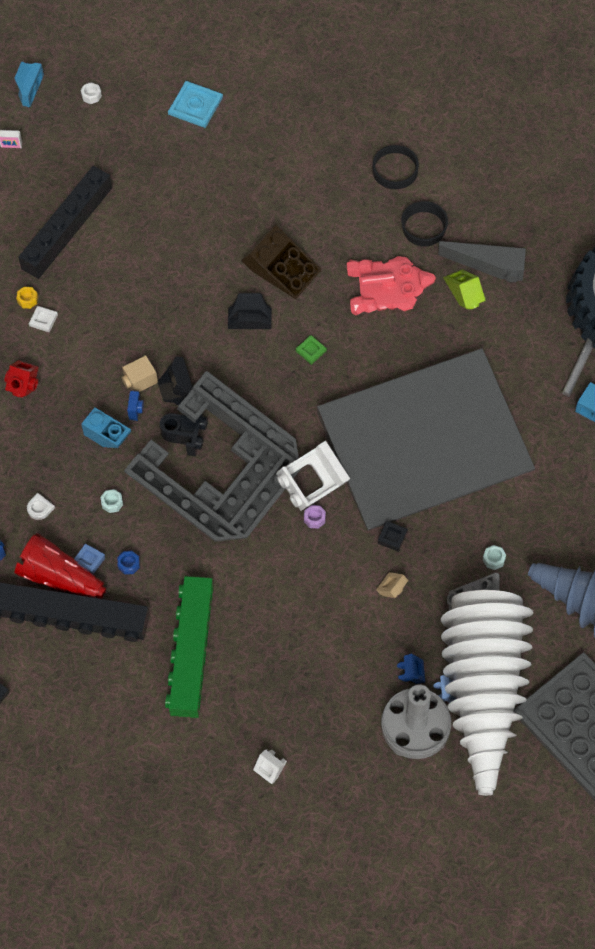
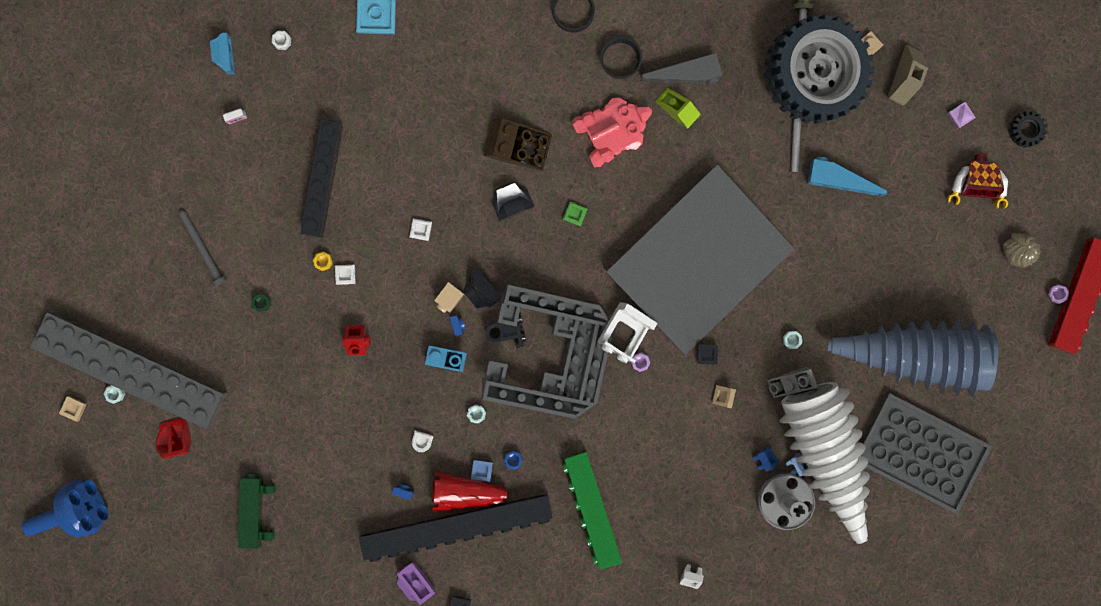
camera: 25 degrees left, 25 degrees up
(142, 306) = (420, 229): none -> white tile

